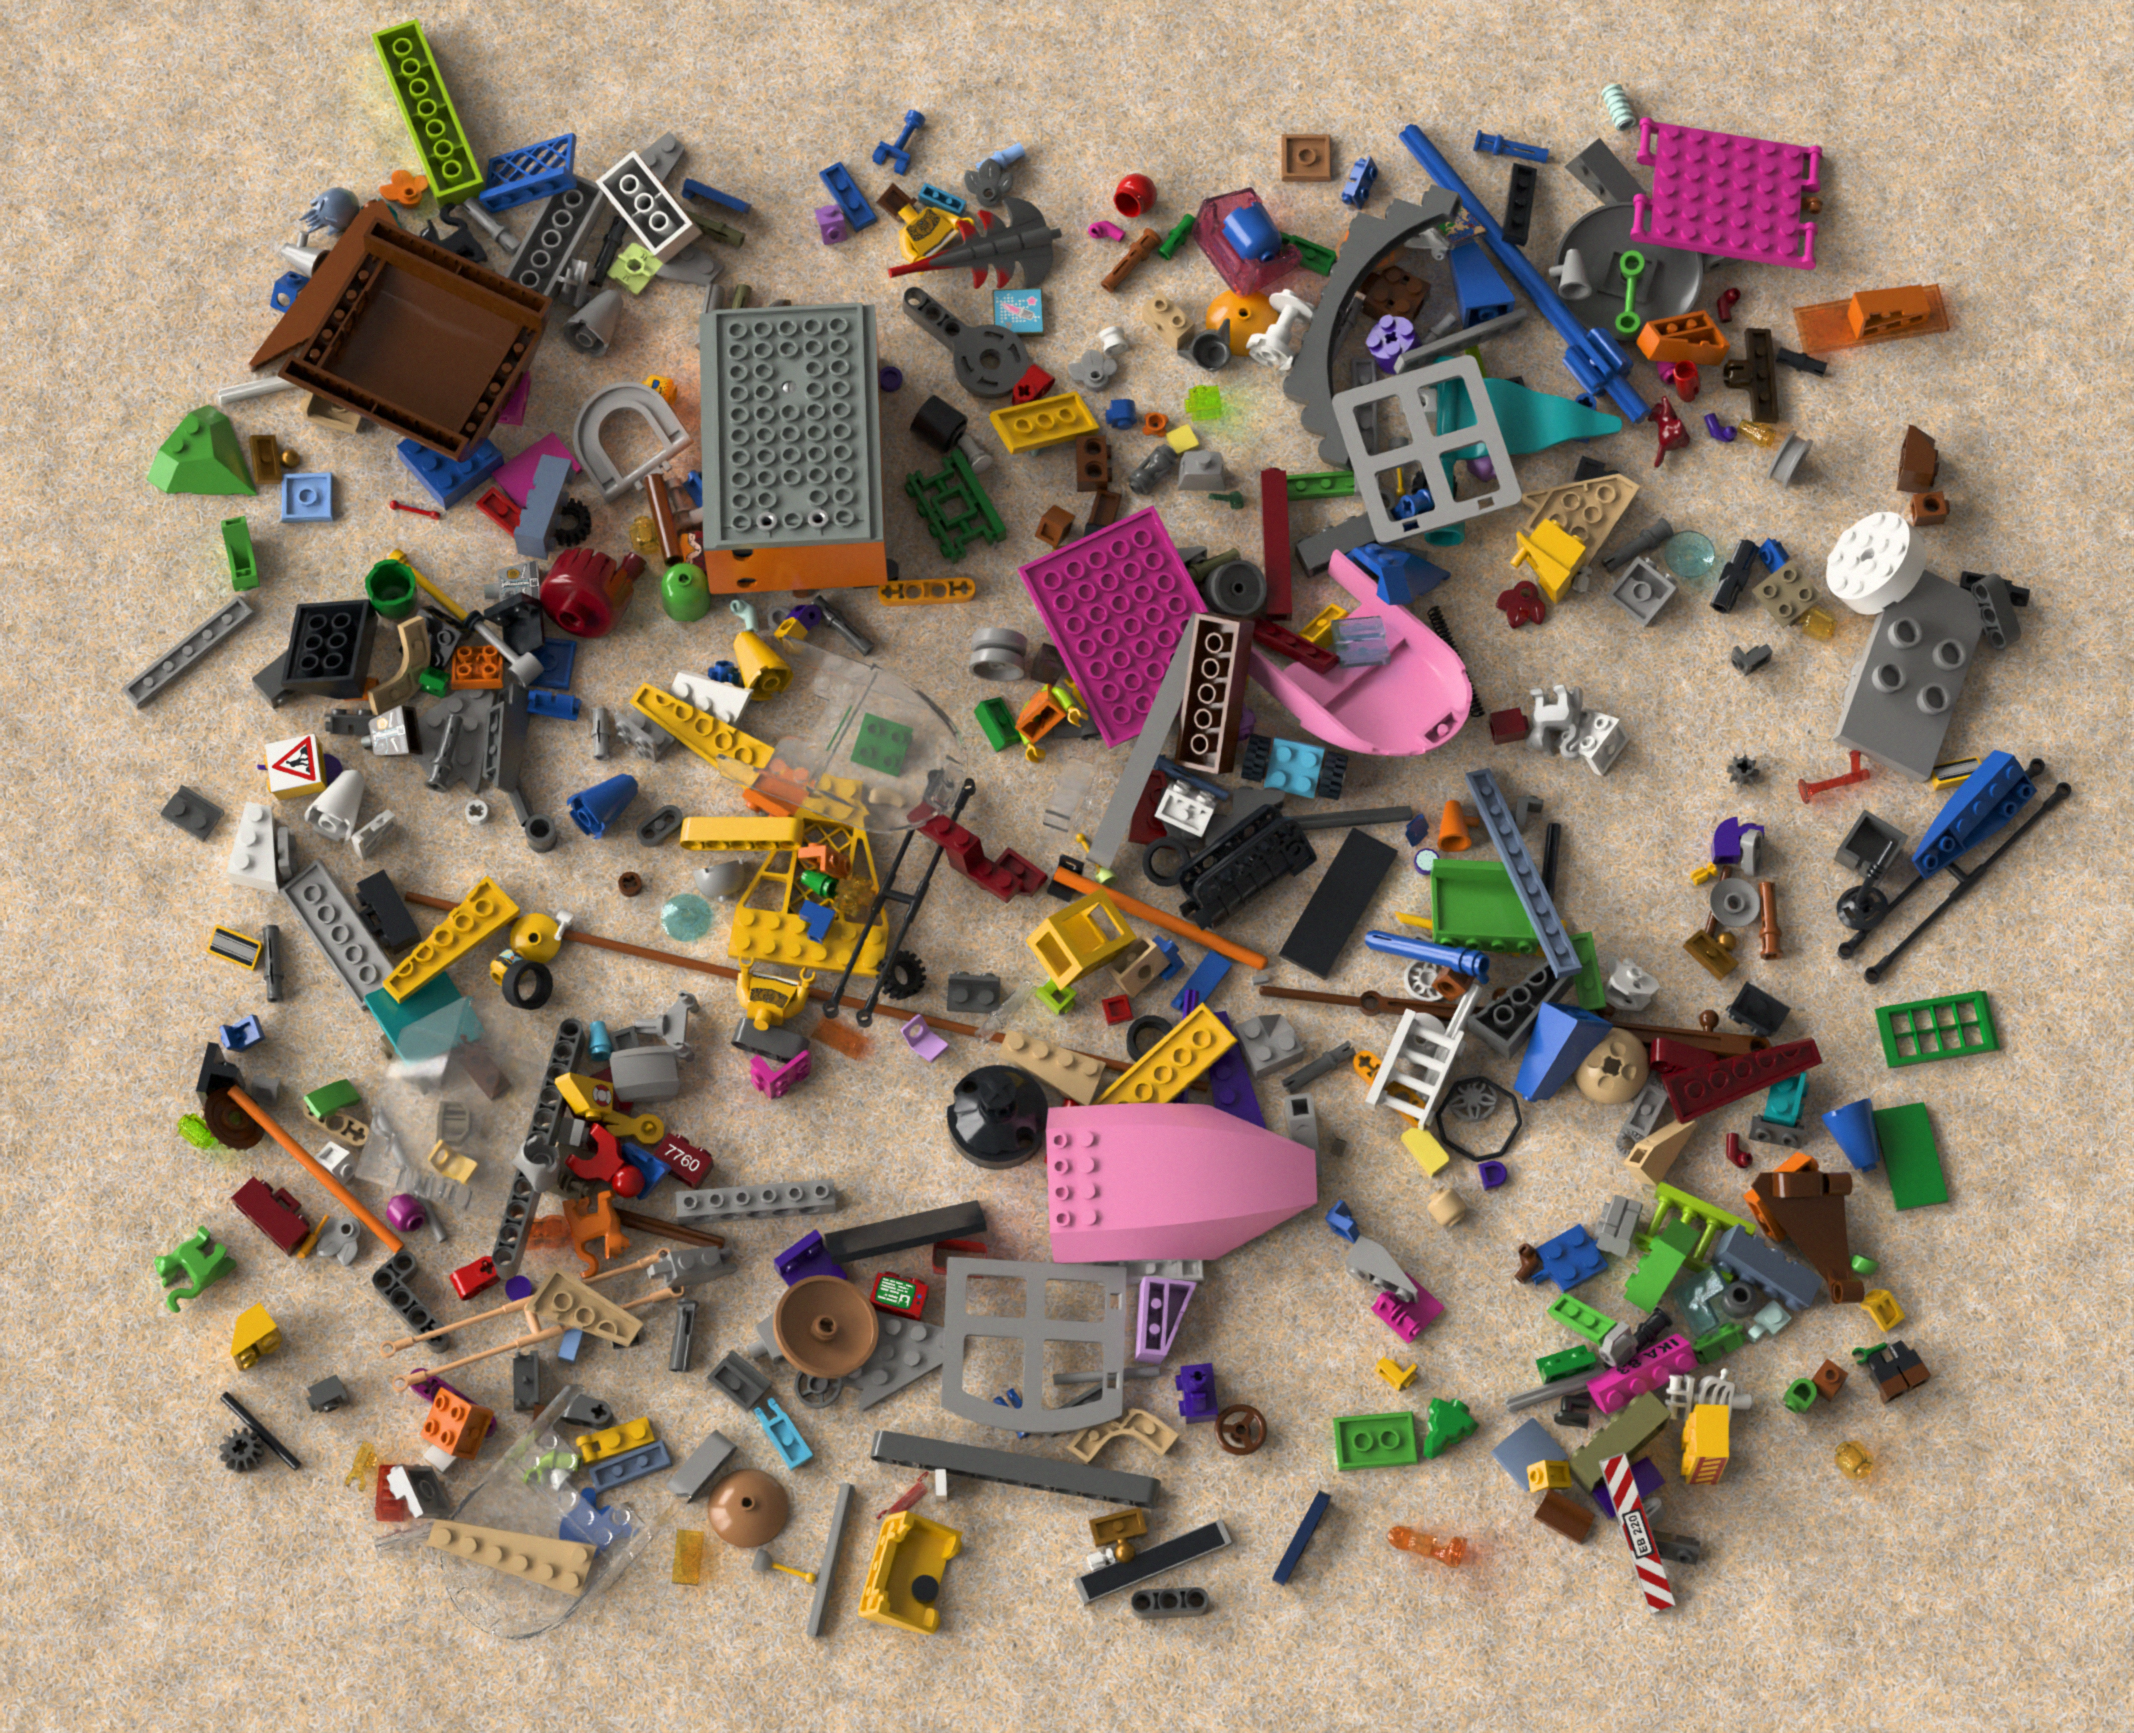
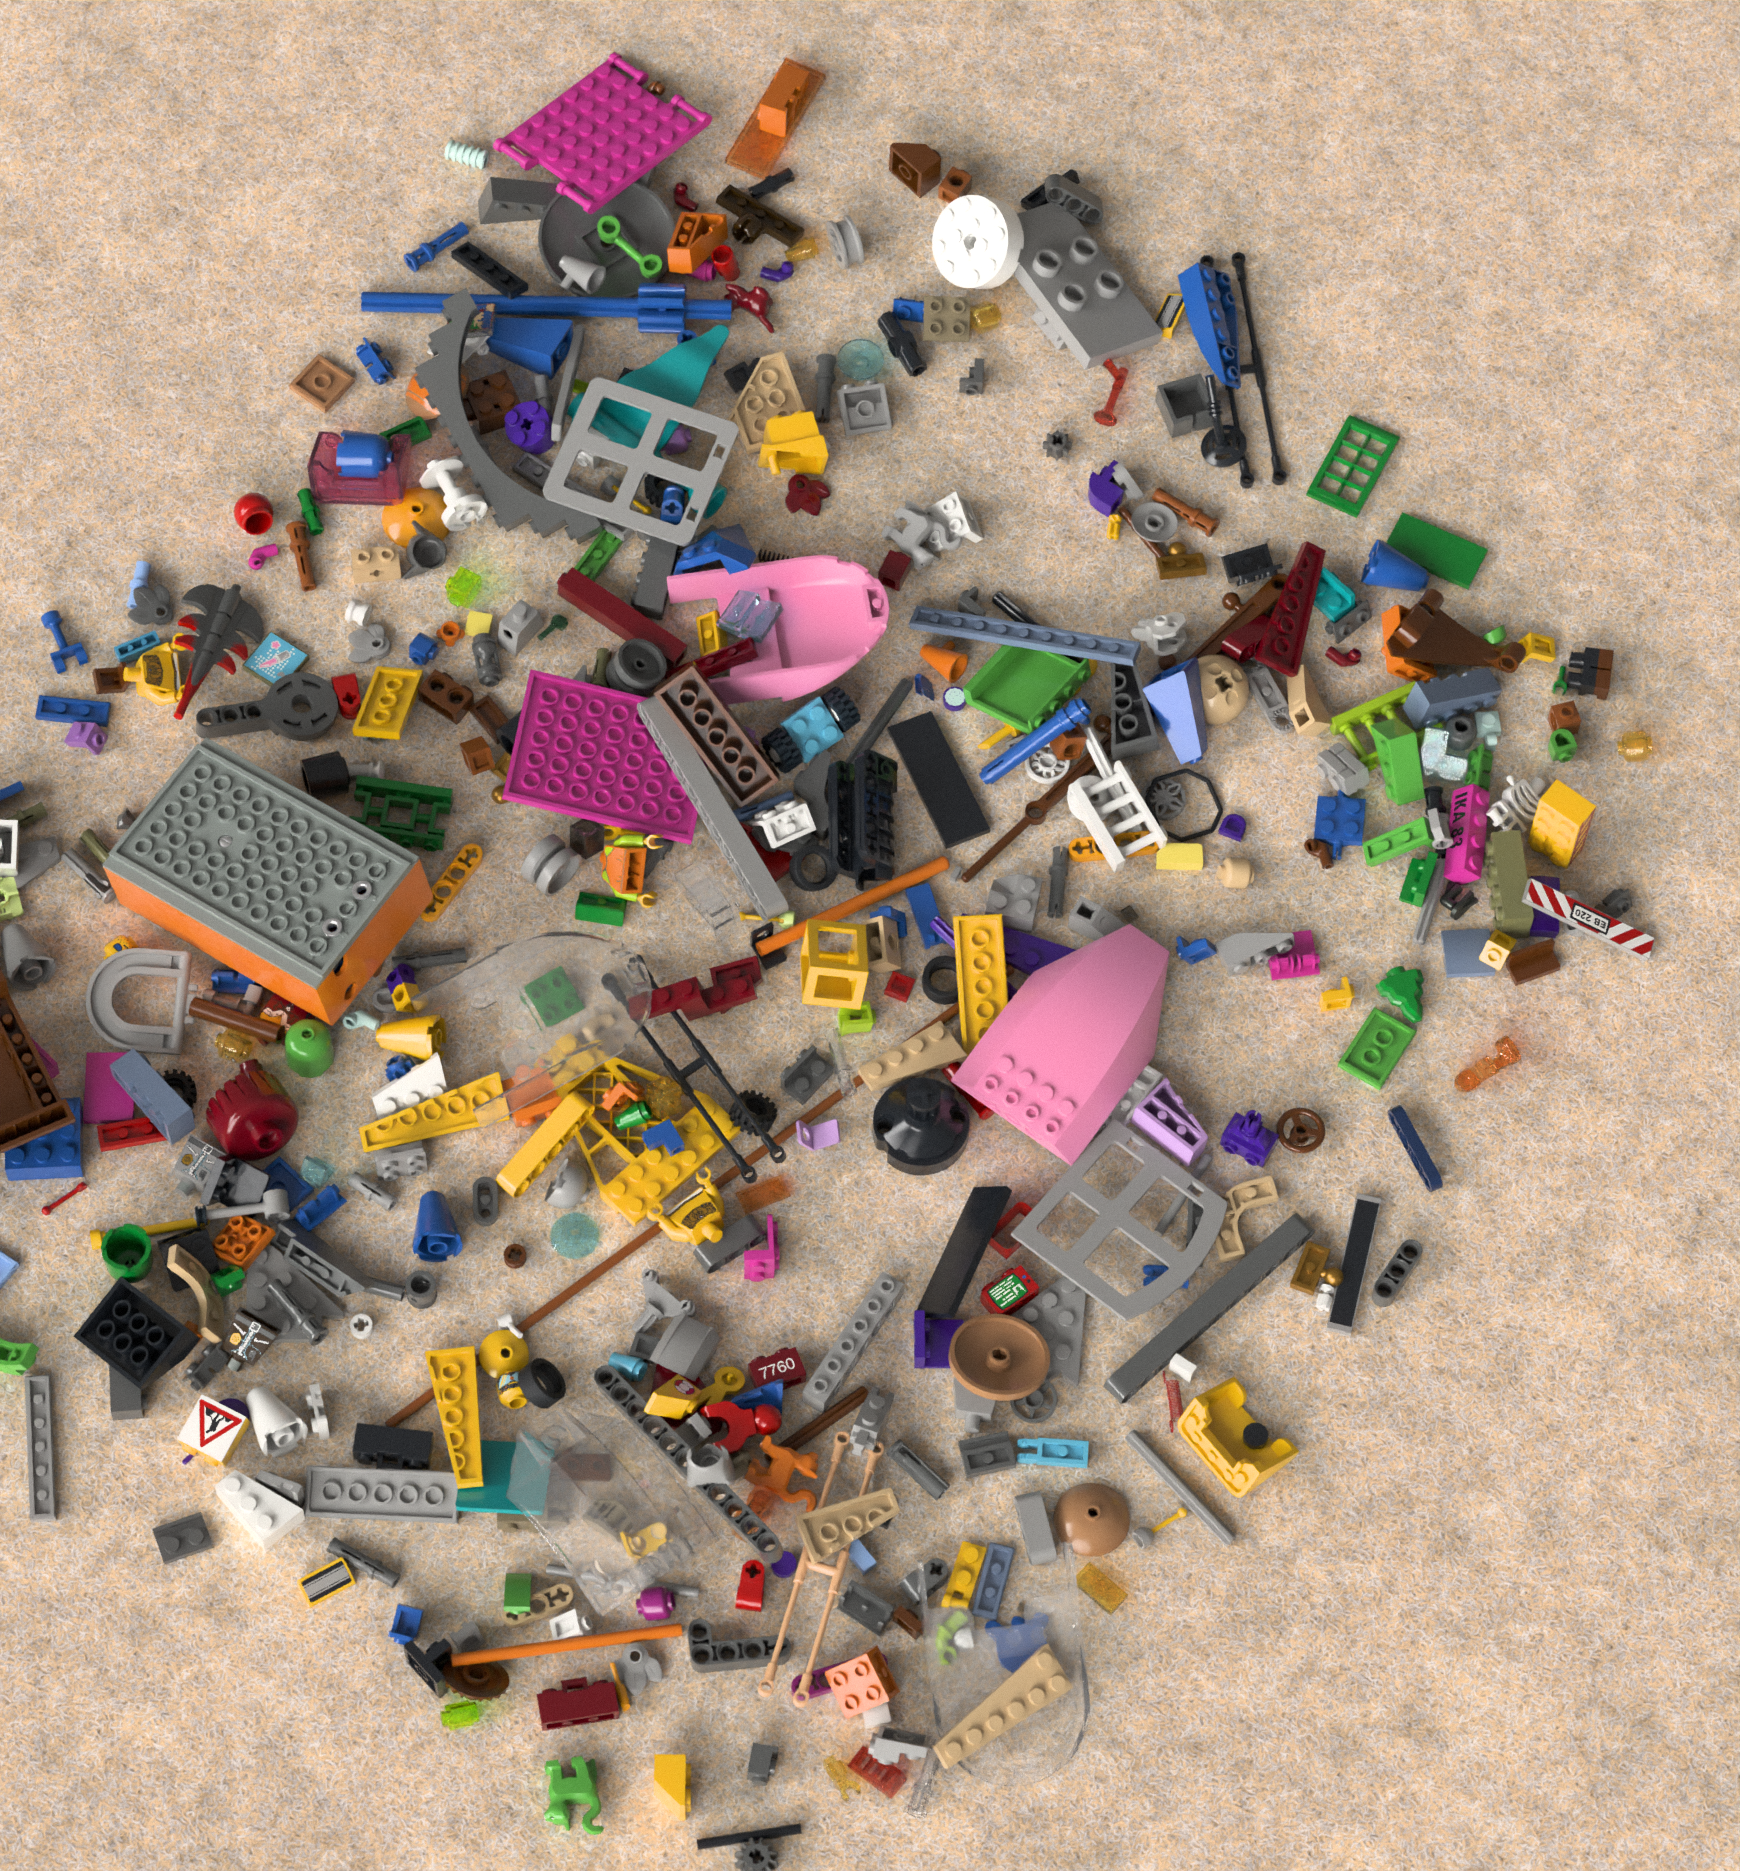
camera: 55 degrees left, 5 degrees down
(575, 678) = (315, 1172): none -> clear light blue bracket
(1589, 981) = (1149, 659): bright green piece -> none

